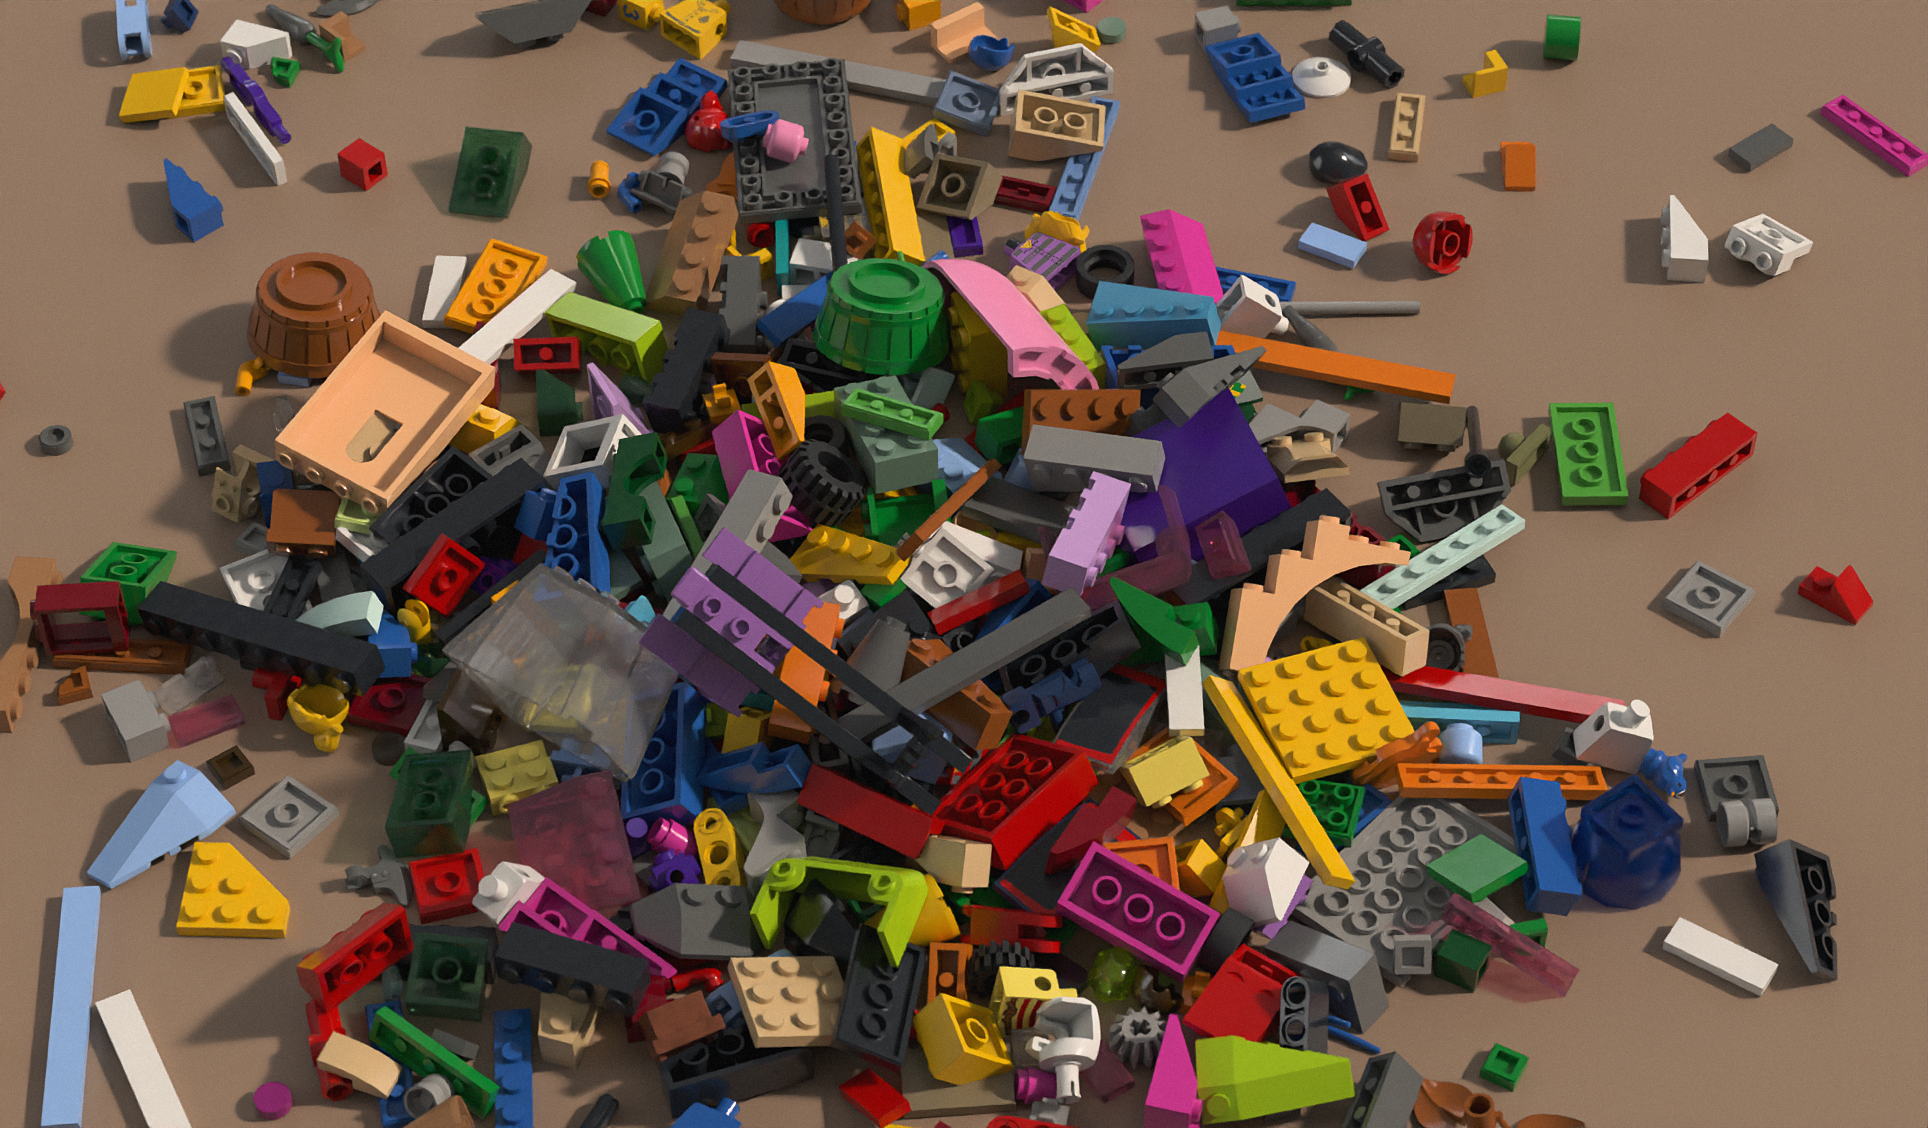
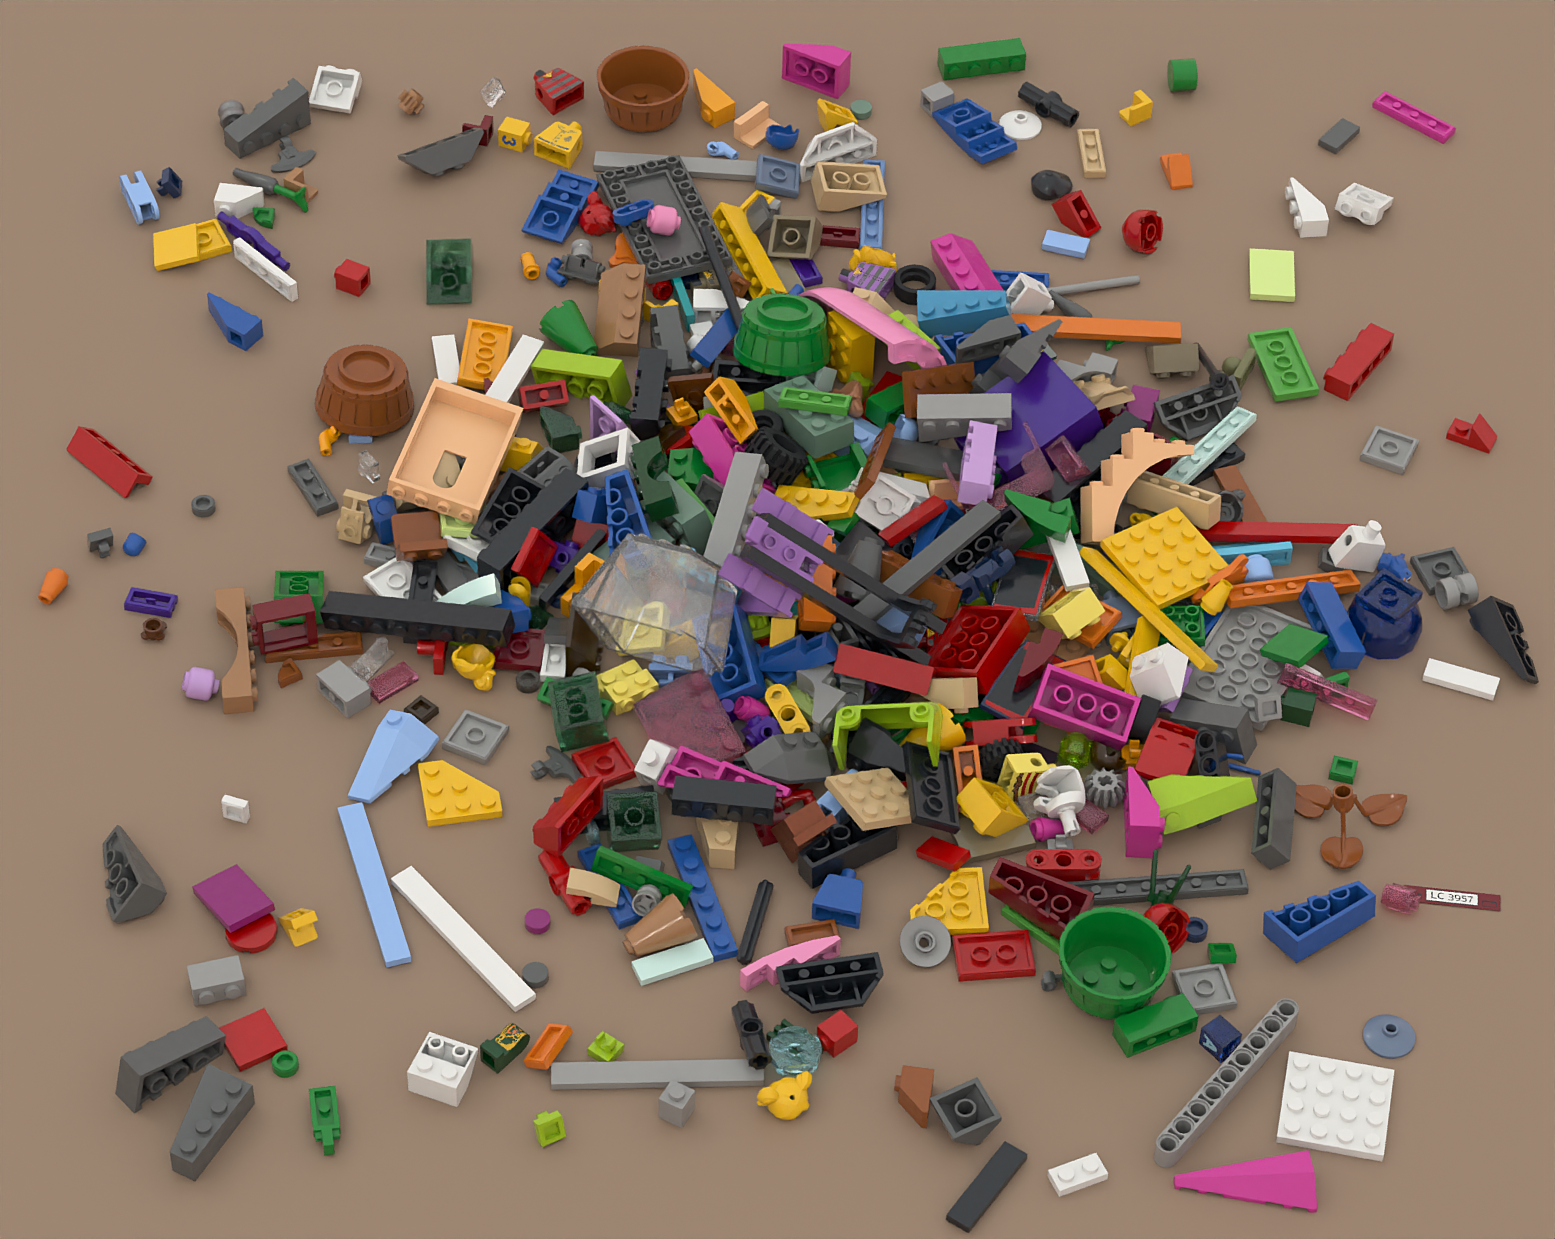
camera: 15 degrees left, 0 degrees up
(907, 59) = (722, 149): none -> light blue arm
(957, 417) = (854, 389): none -> nougat hair
(1360, 488) = (1143, 405): none -> magenta brick
(1382, 780) = (1215, 599): none -> yellow cone
(1609, 326) = (1271, 275): none -> yellowish green tile

